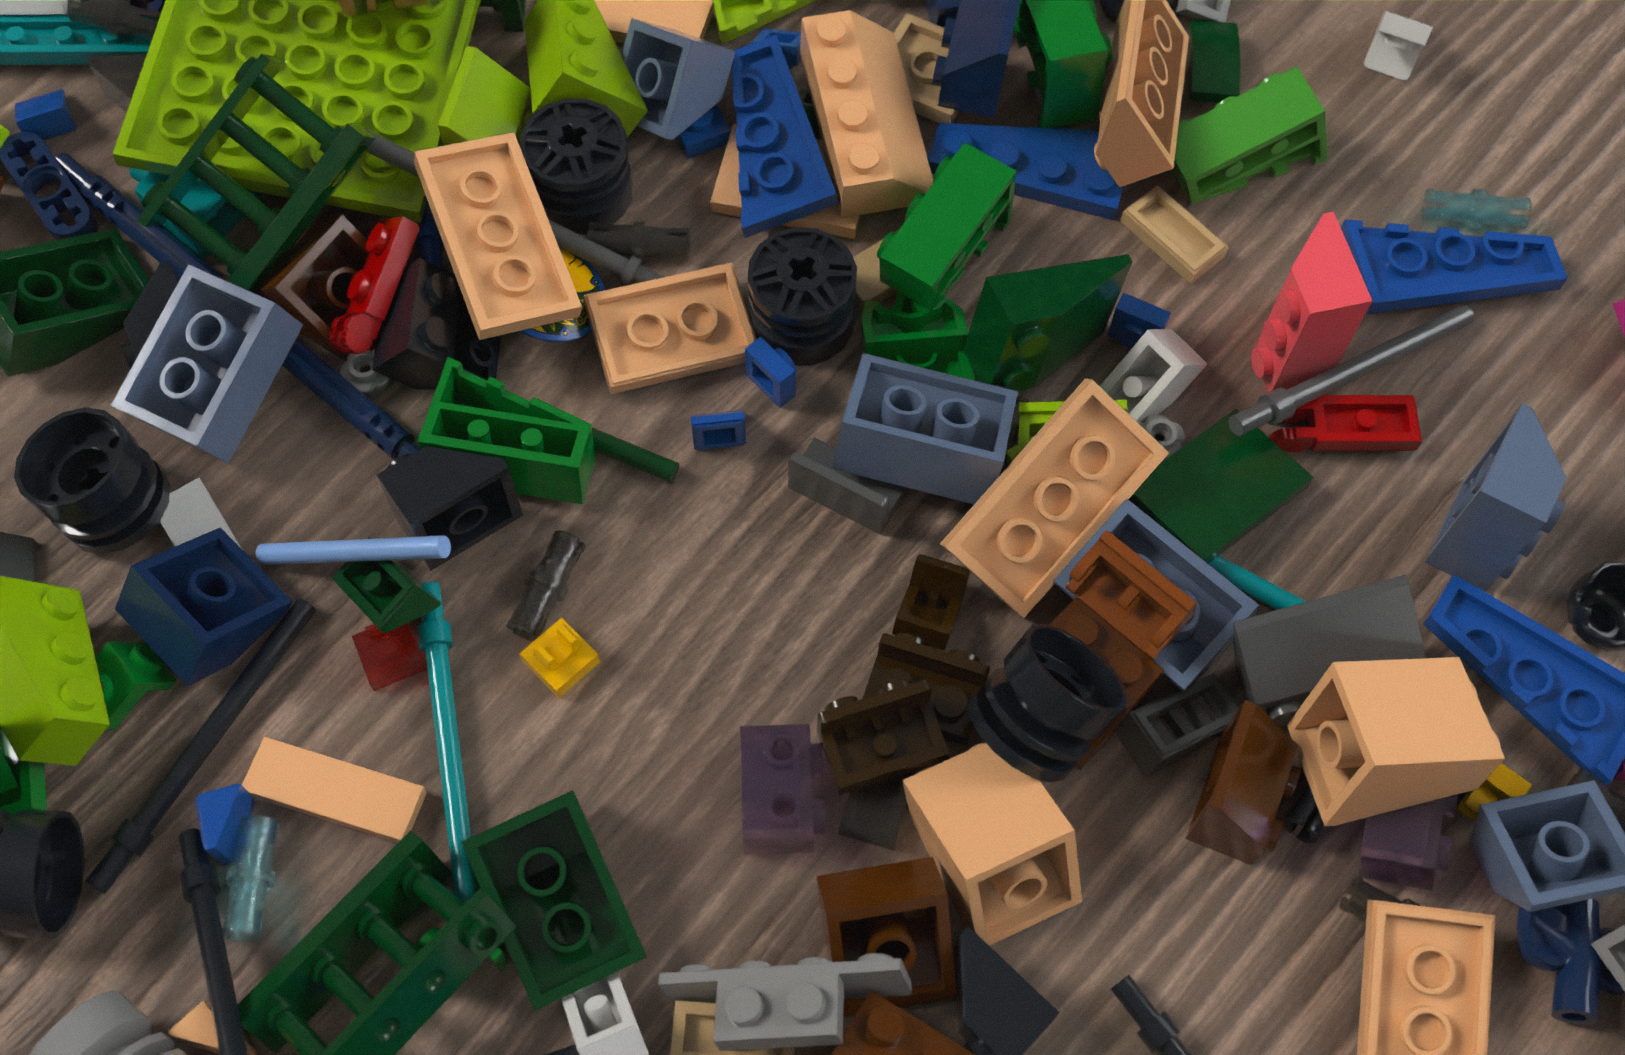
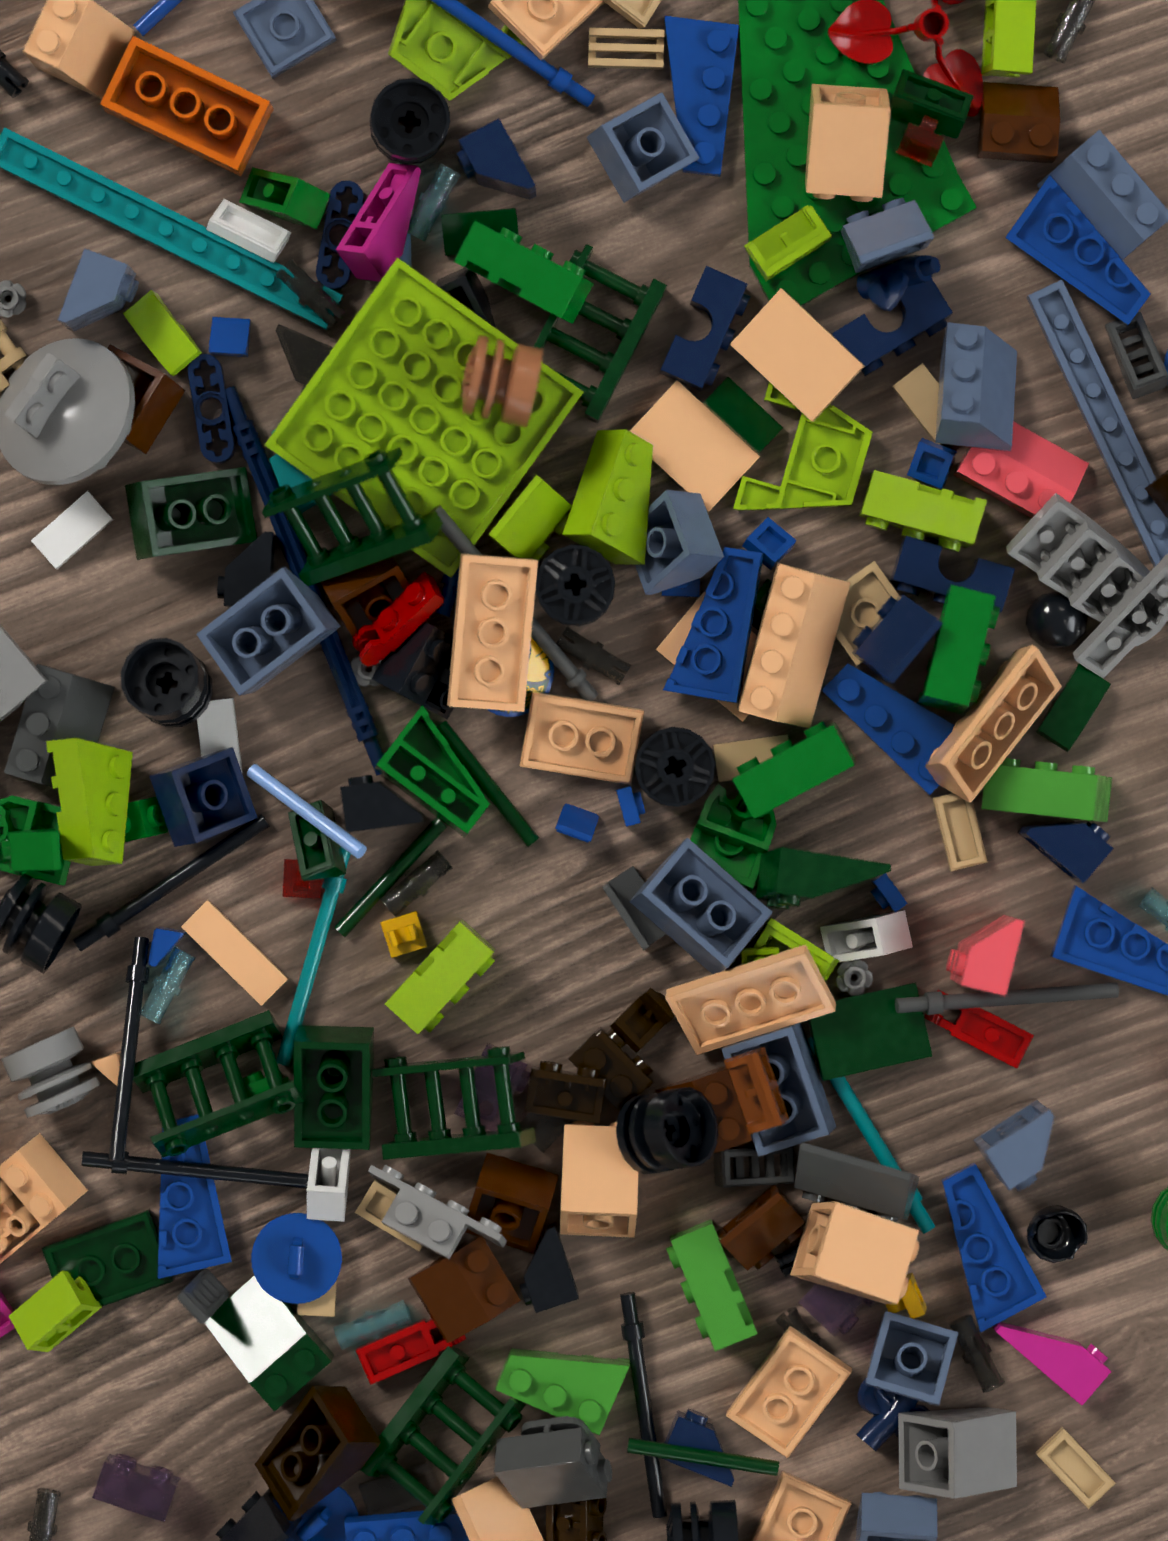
camera: 30 degrees right, 25 degrees up
(507, 599) = (390, 877): none -> dark green bar
(636, 672) = (441, 978): none -> lime wedge
(787, 846) = (474, 1134): none -> dark green fence
(1231, 903) = (711, 1285): none -> bright green wedge
(1307, 172) = (1070, 846): none -> dark blue slope

